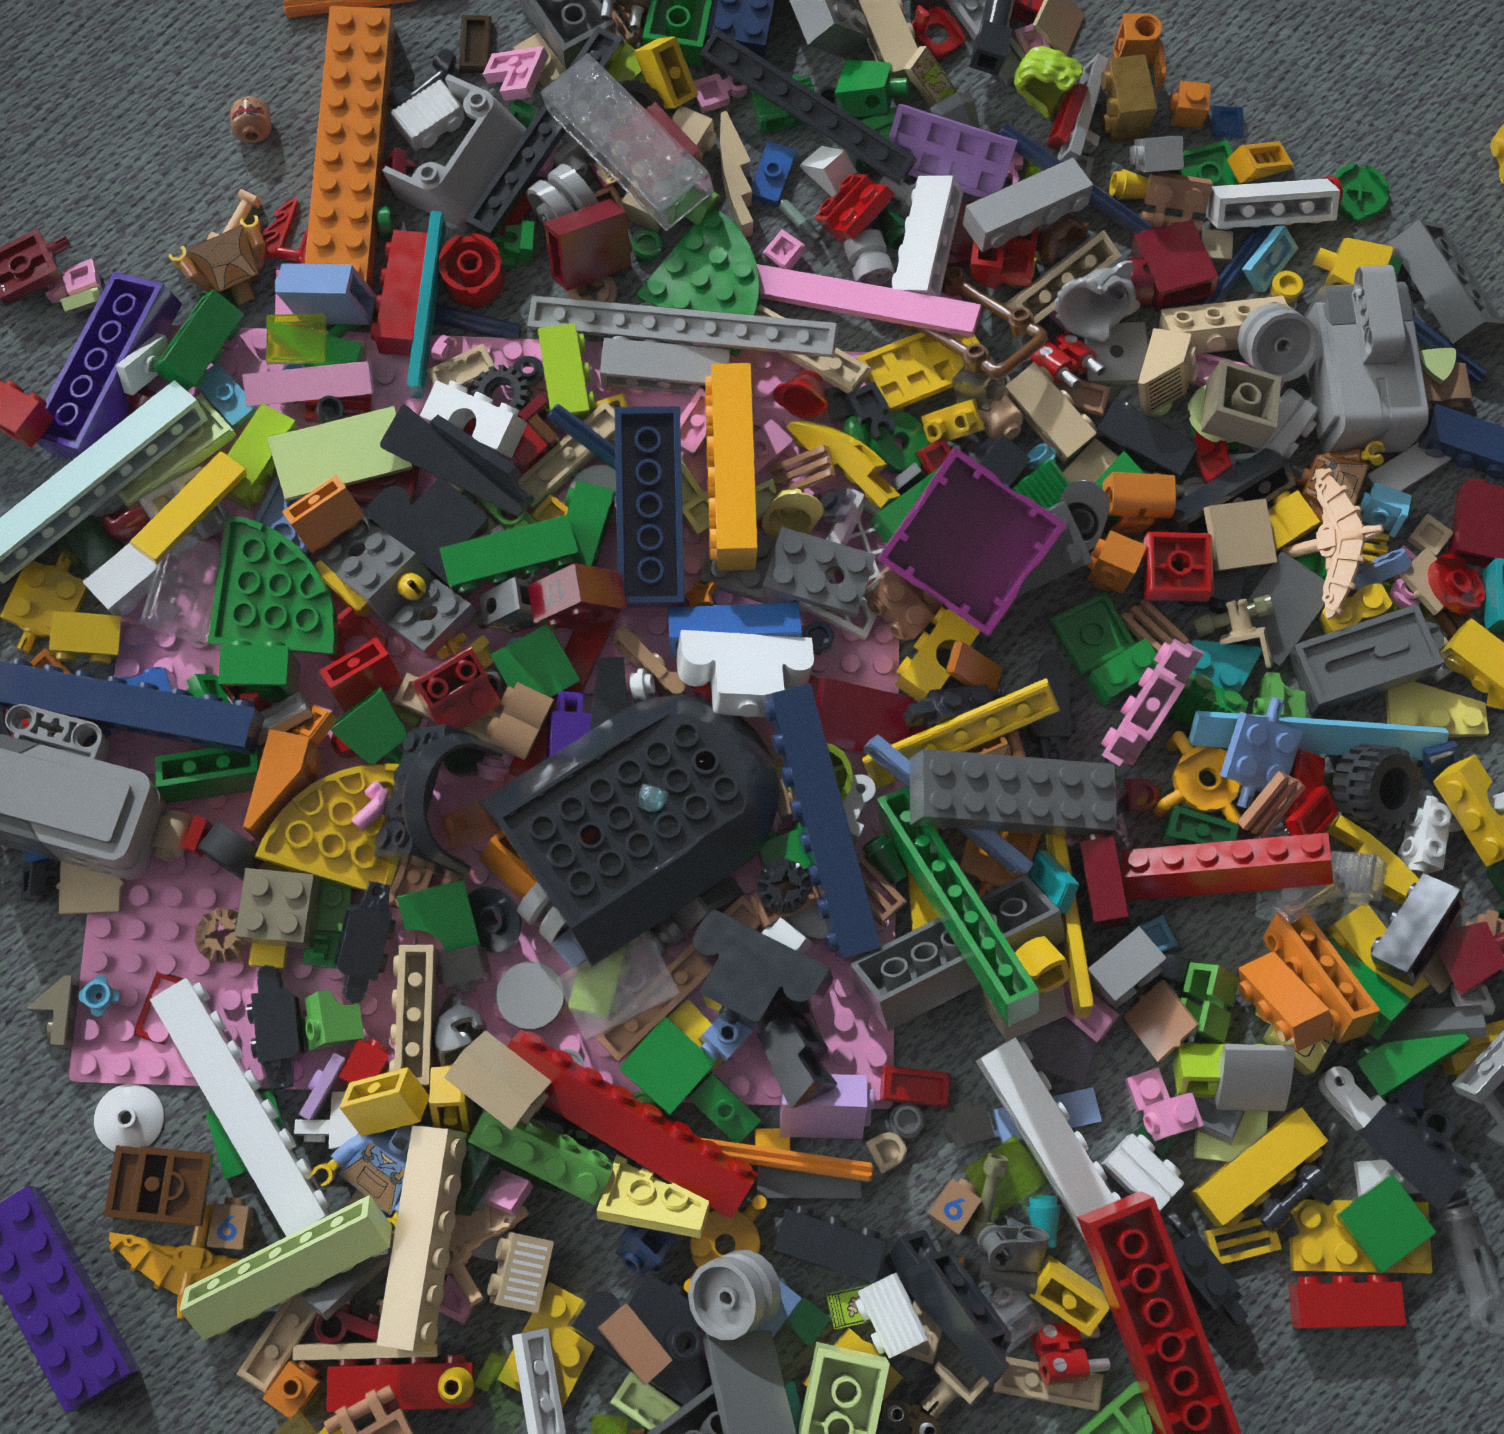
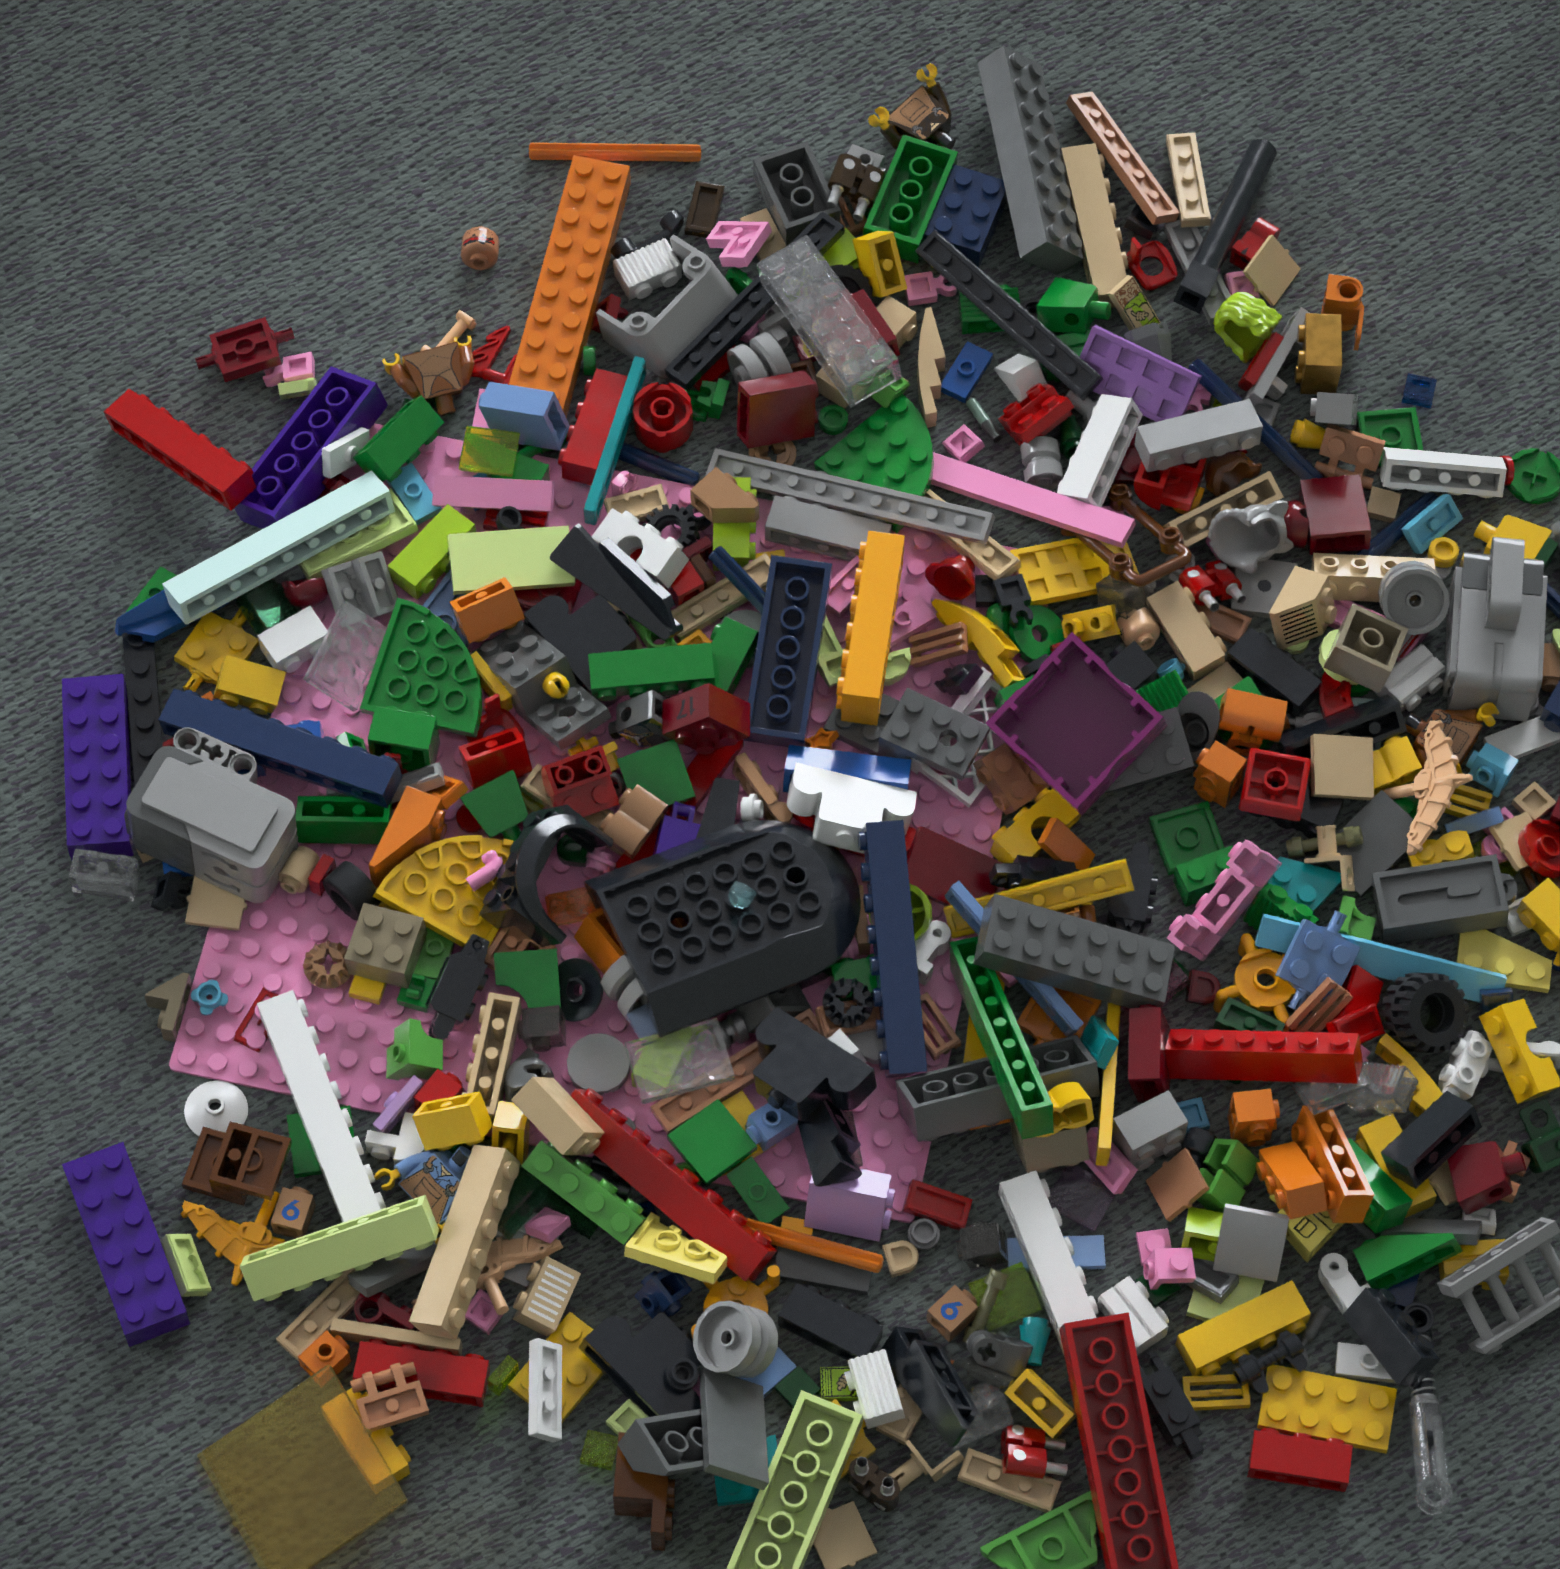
camera: 15 degrees right, 10 degrees down
(123, 1308) = (185, 1265): none -> yellowish green plate
(188, 508) = (366, 584): yellow tile -> none
(277, 1028) = (365, 1050): black hinge -> none
(464, 1381) = (473, 1377): yellow cone -> none
(551, 353) = (723, 500): none -> medium nougat slope
(635, 1344) = (638, 1364): nougat tile -> none
(793, 511) = (922, 676): light yellow piece -> none
(821, 636) = (927, 796): dark blue tile -> none
(884, 857) = (947, 998): dark green cone -> none
(1152, 614) = (1248, 827): nougat tile -> none
(1189, 104) = (1382, 368): orange brick -> none
(1225, 933) = (1253, 1116): none -> orange brick
(1255, 161) = (1431, 433): light orange slope -> none
(1385, 1223) = (1350, 1395): green tile -> none

